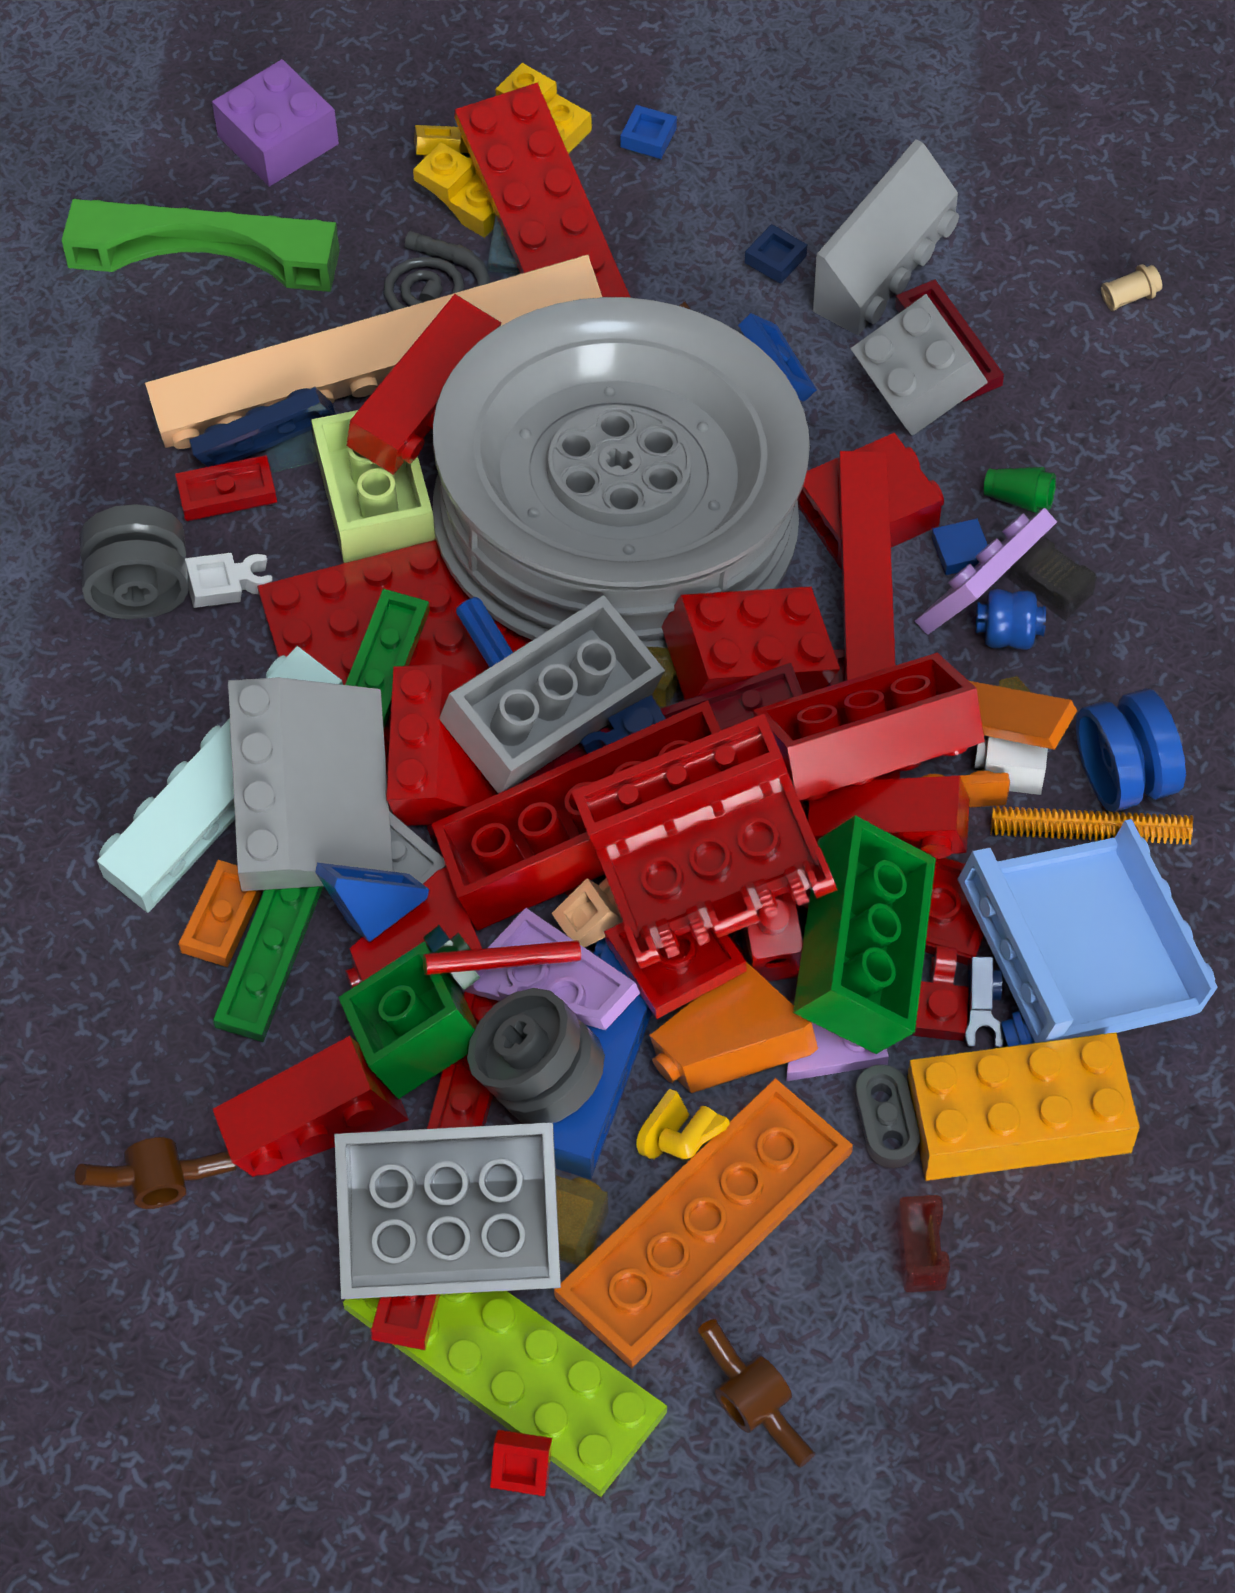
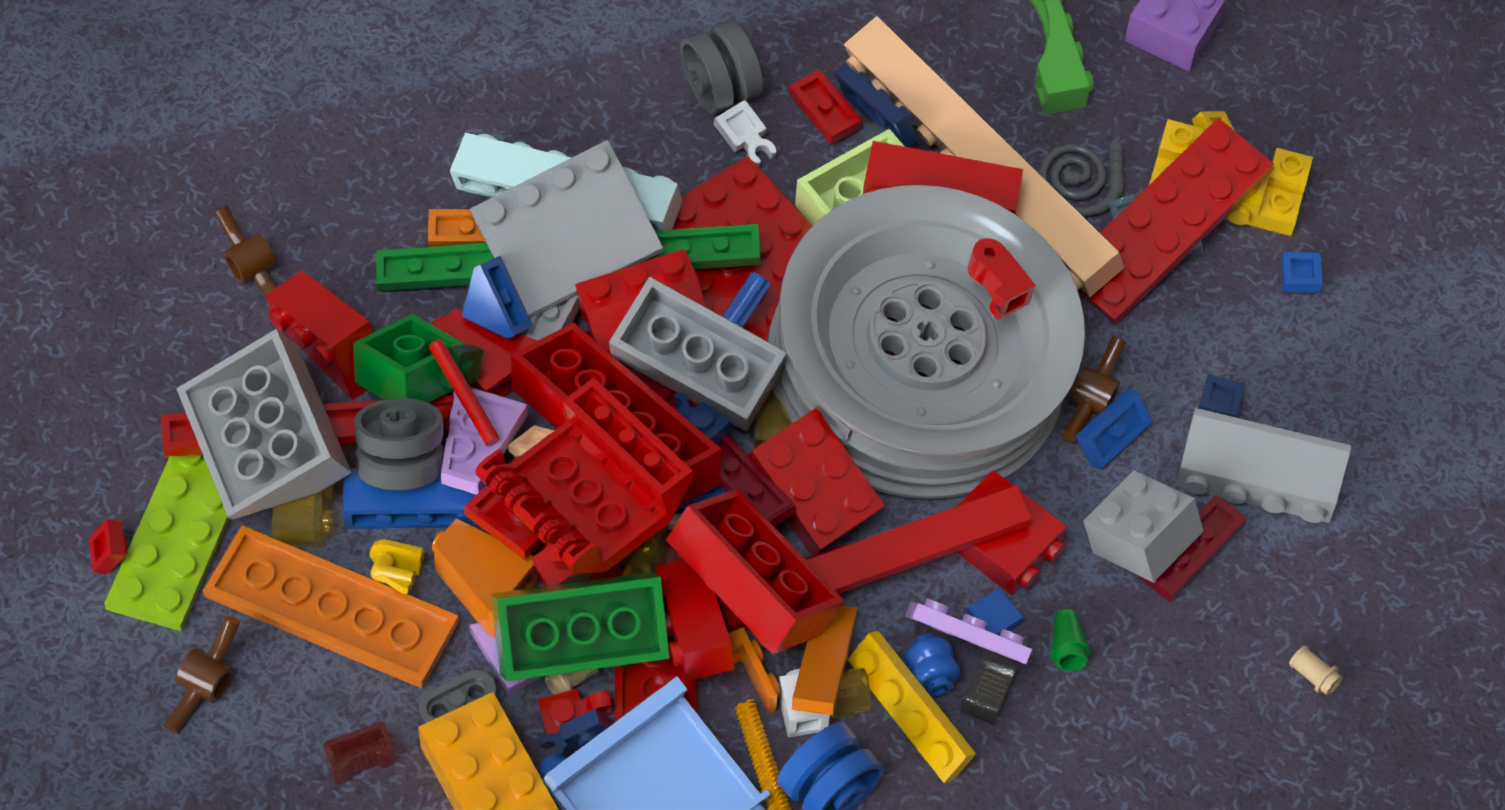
camera: 65 degrees right, 0 degrees up
(604, 350) = (1001, 276): none -> red leg
(1061, 652) = (912, 707): none -> yellow plate

